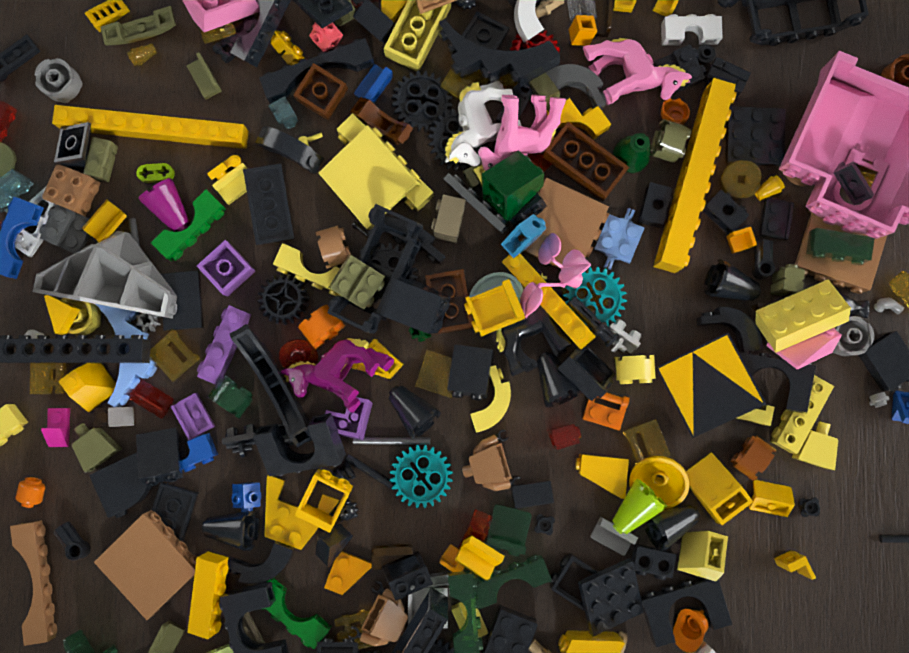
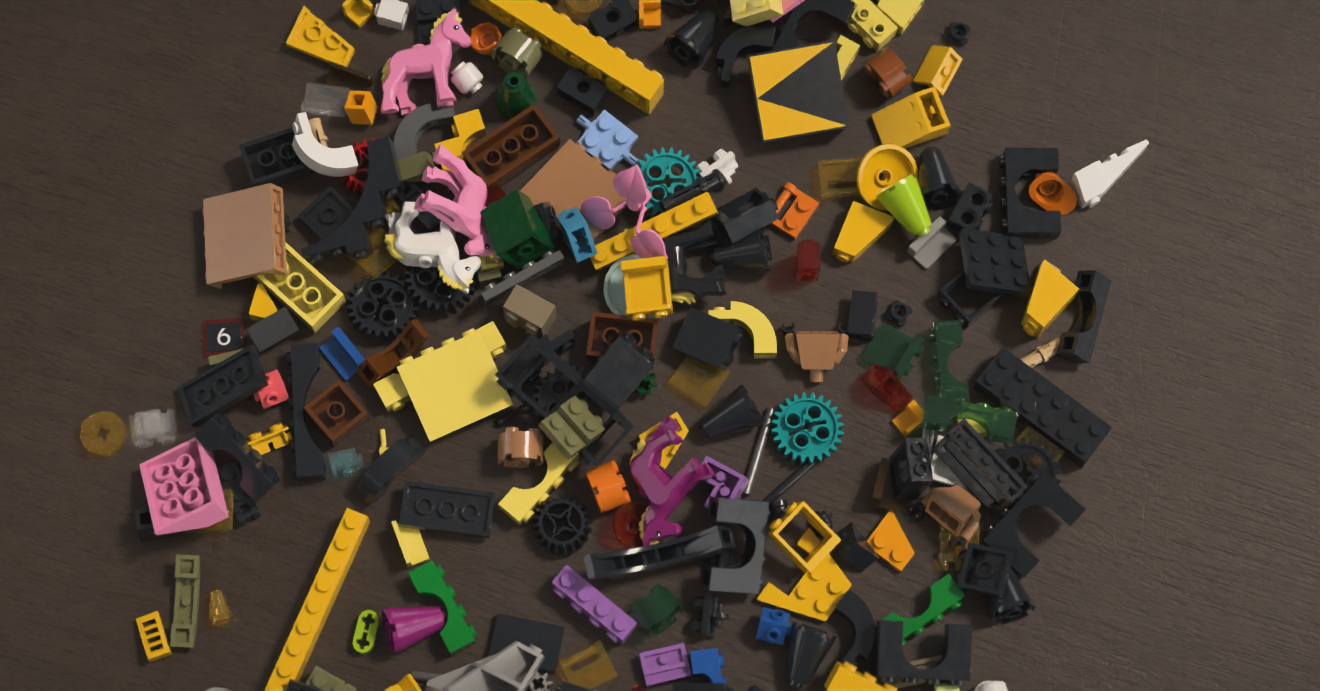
camera: 75 degrees left, 10 degrees down
(203, 77) = (270, 543): olive panel -> none
(220, 171) = (390, 548): yellow plate -> none
(226, 268) = (507, 576): medium lavender brick -> none
(478, 557) = (912, 388): yellow panel -> none
(635, 368) = (756, 164): light yellow brick -> none
(636, 107) = (467, 78): none -> white head
(703, 554) = (976, 154): light yellow slope -> none
(794, 561) = (1010, 62): yellow panel -> none

